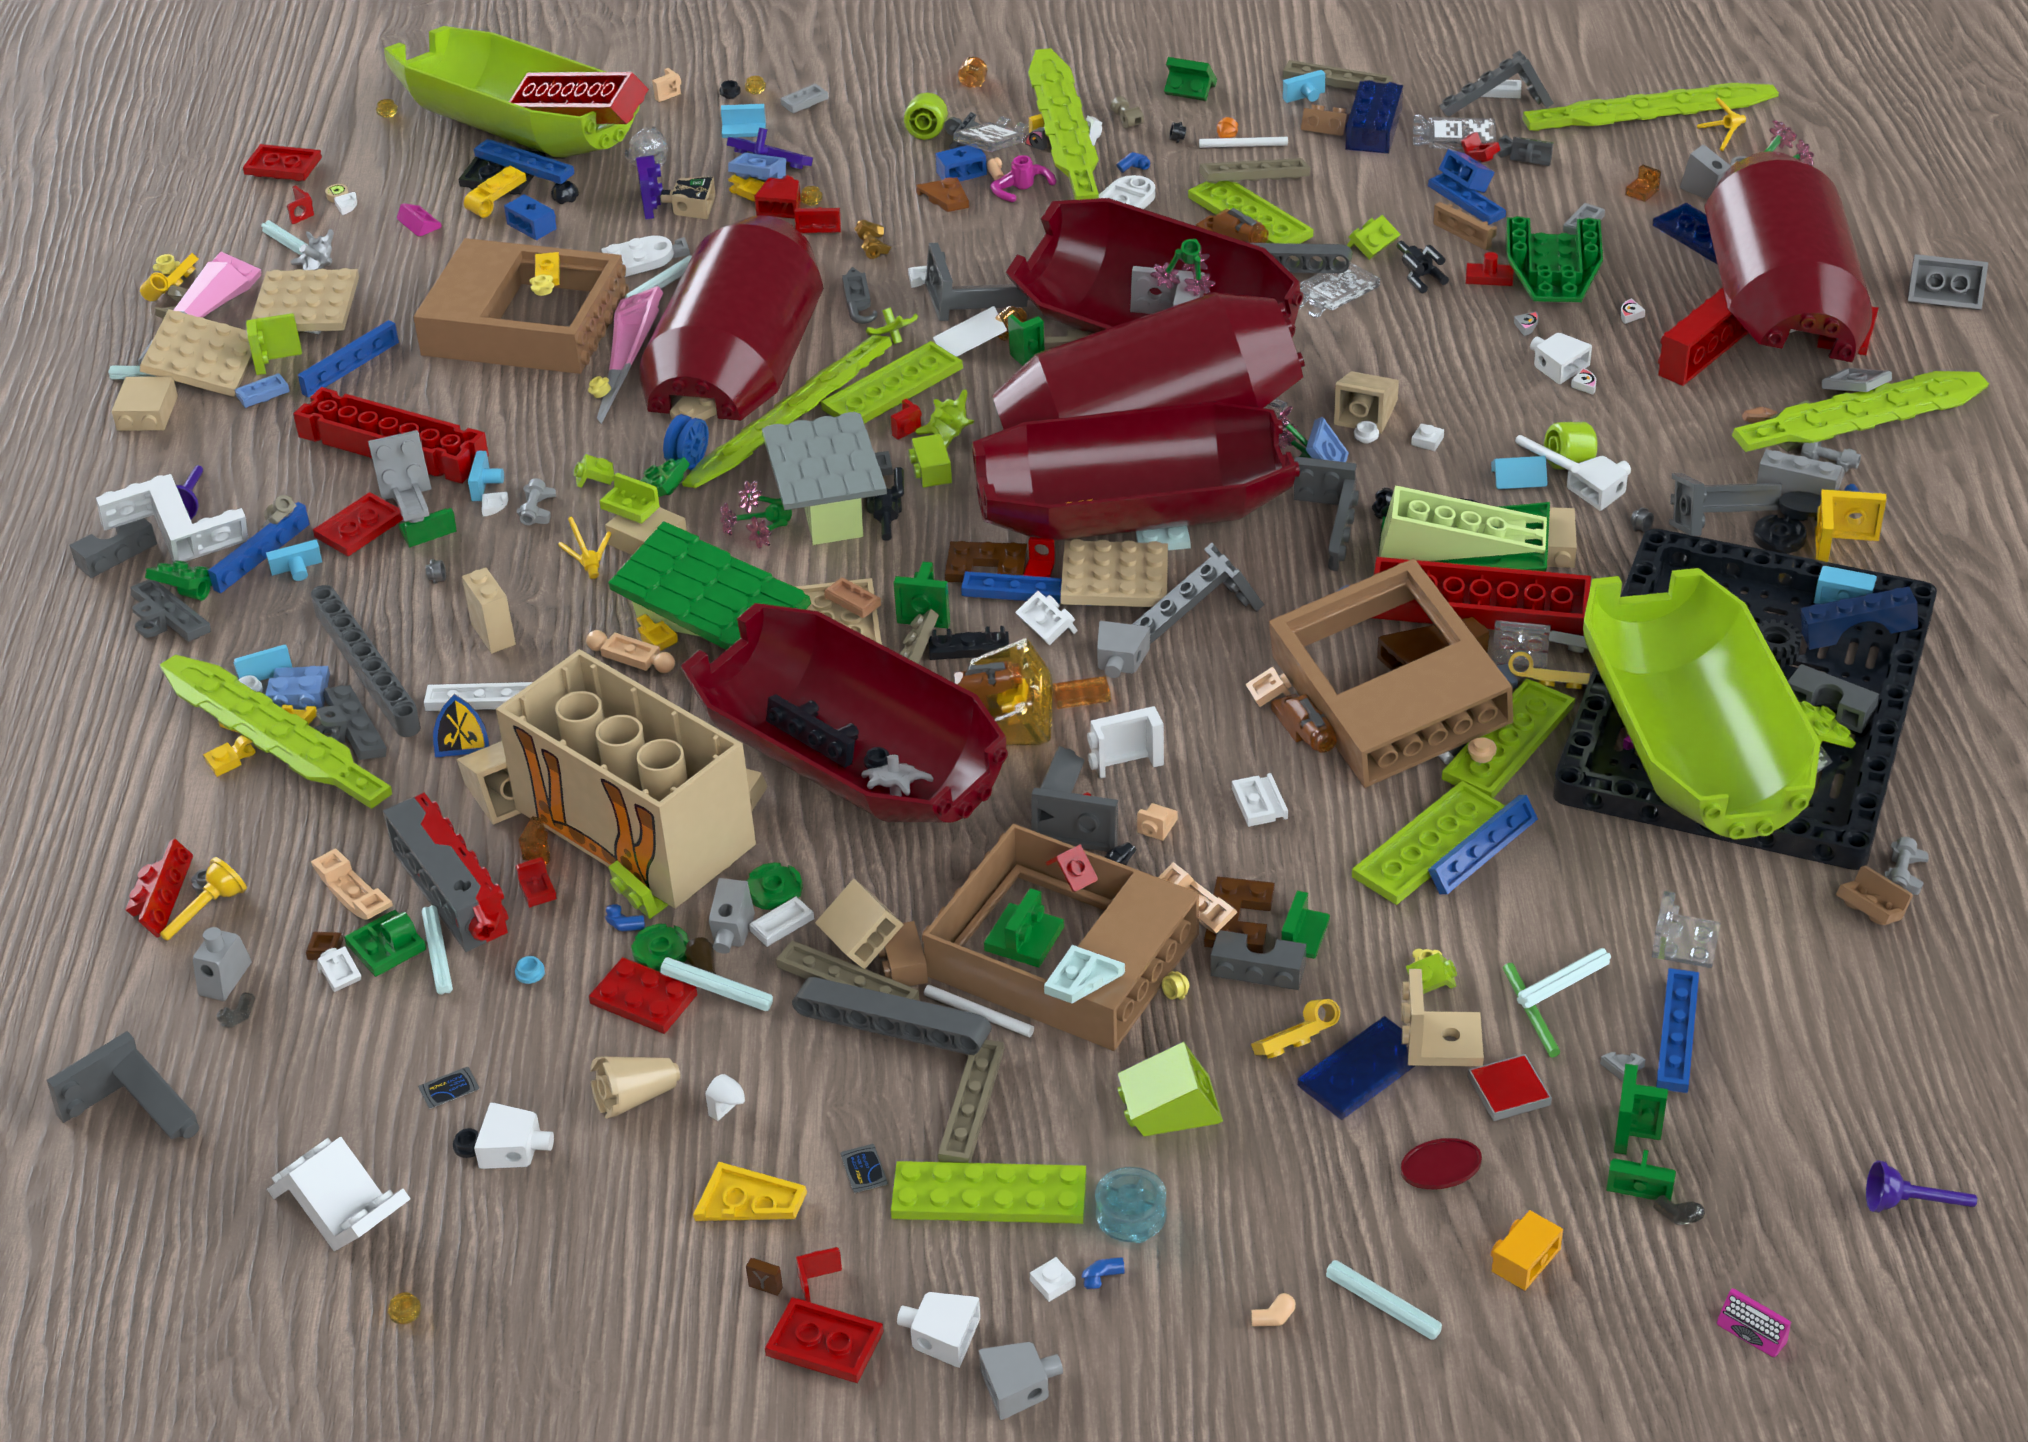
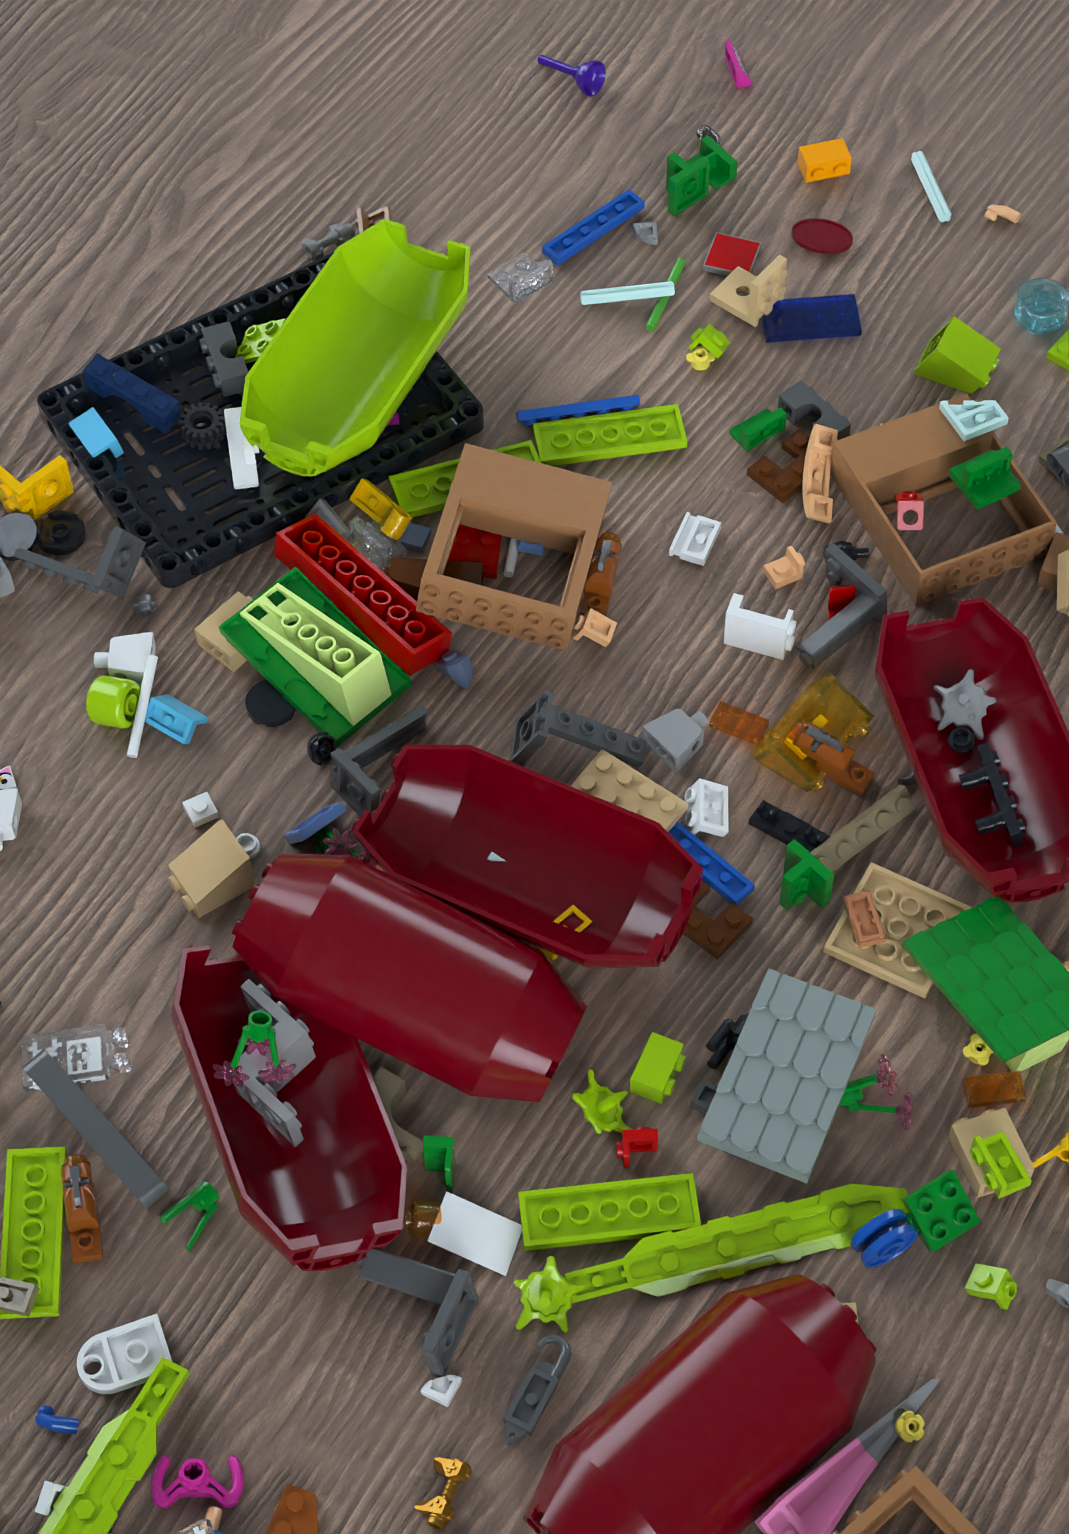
camera: 145 degrees left, 15 degrees up
(1300, 1033) = (834, 355): yellow plate -> none

